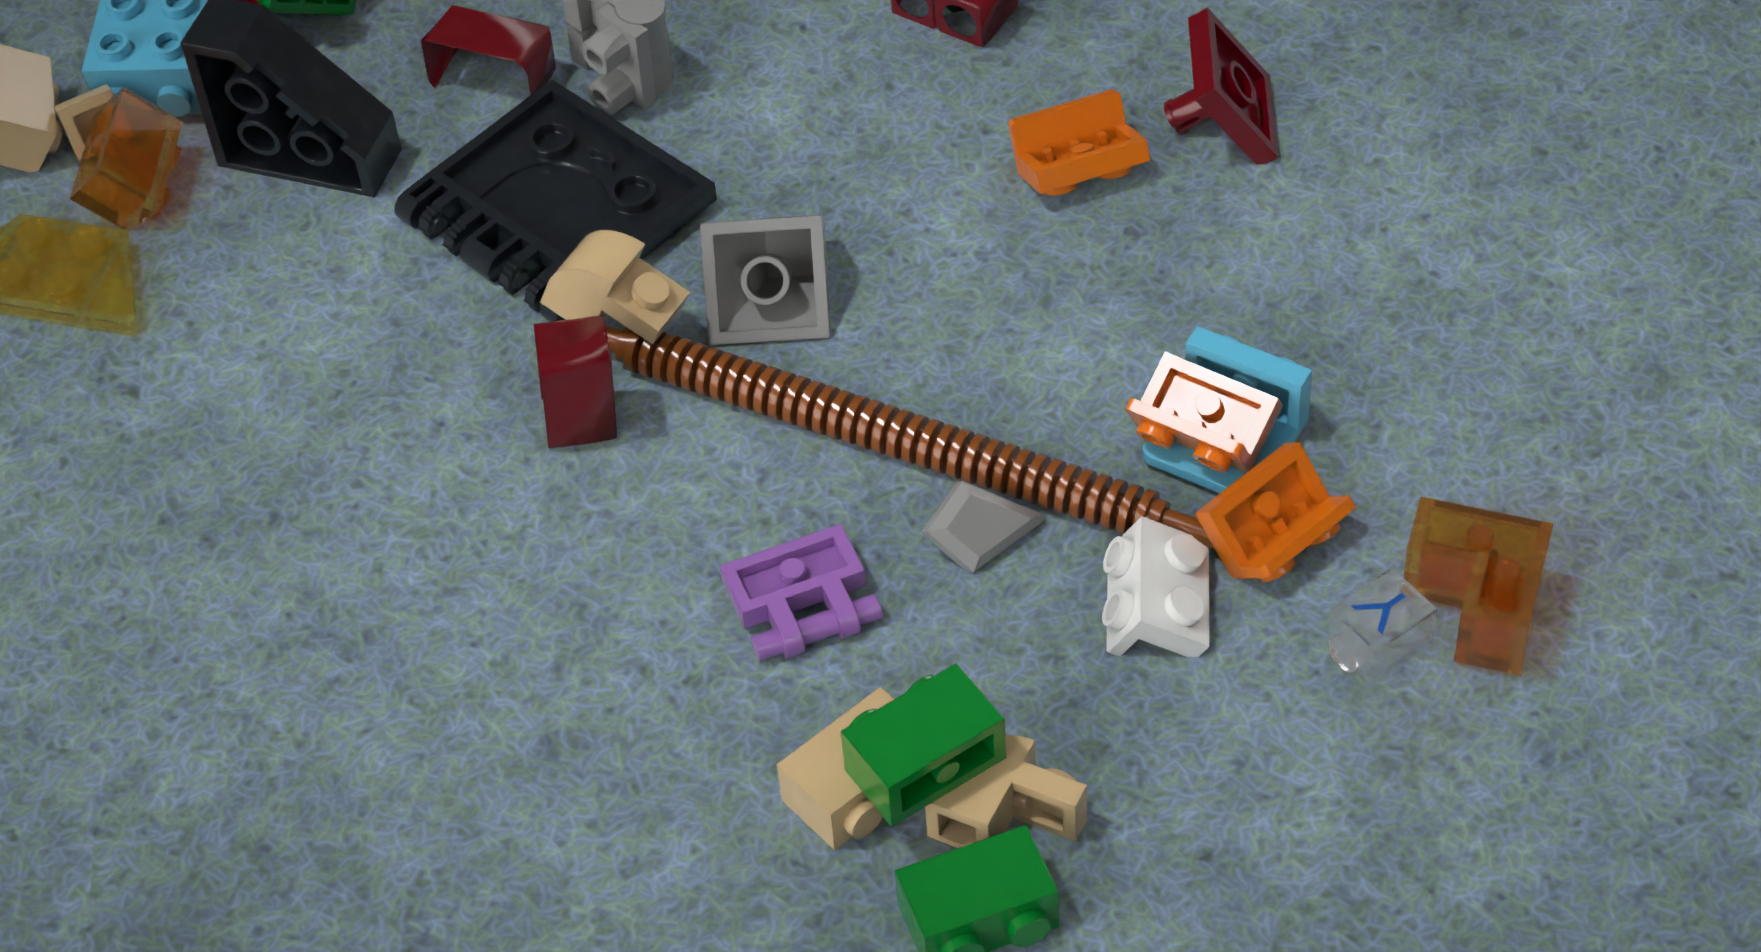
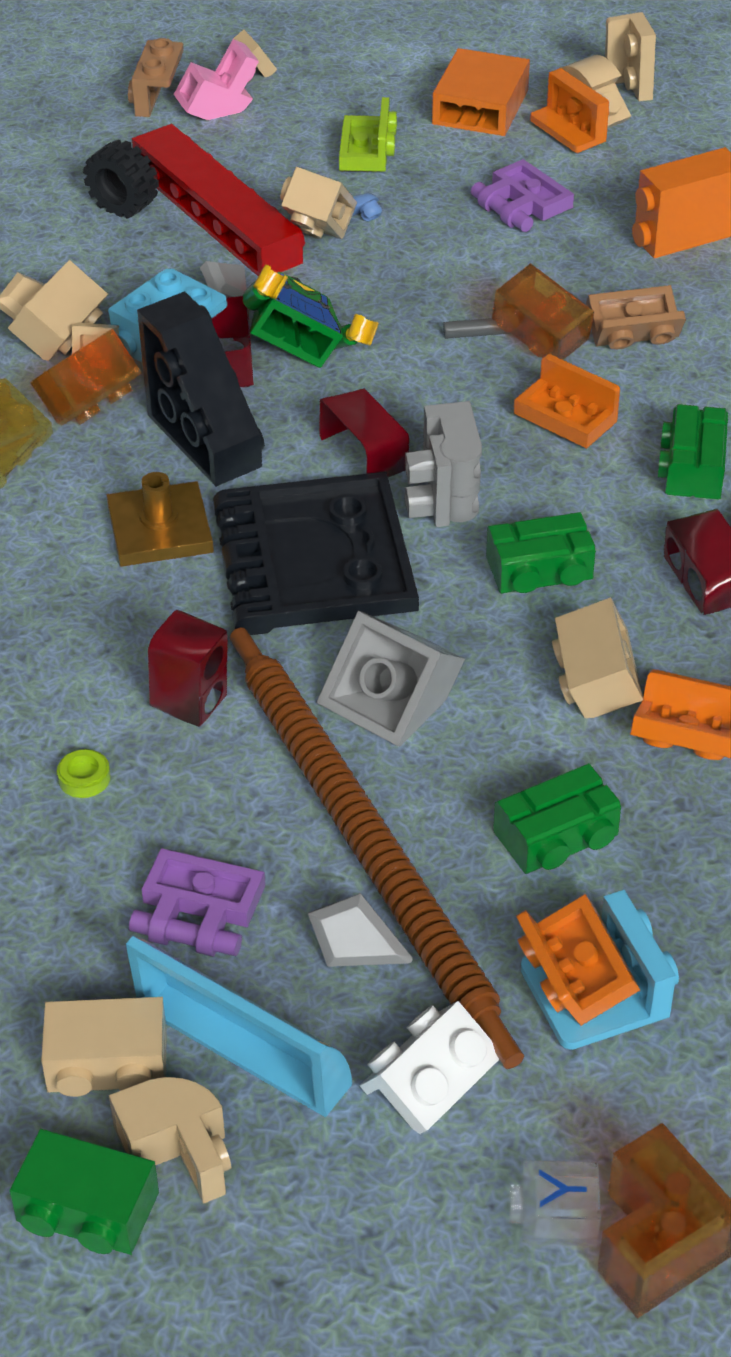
camera: 35 degrees right, 5 degrees down
(360, 266) = (159, 521): none -> pearl gold tile
(553, 551) = (83, 773): none -> lime tile
(611, 279) = (269, 618): tan brick -> none
(785, 74) = (540, 553): none -> green brick
(923, 743) = (132, 1052): green brick -> none
(946, 141) = (596, 660): none -> tan brick
(1006, 662) = (240, 1029): none -> medium azure slope
(1053, 309) = (557, 819): none -> green brick
(1272, 515) = (562, 1066): orange bracket -> none

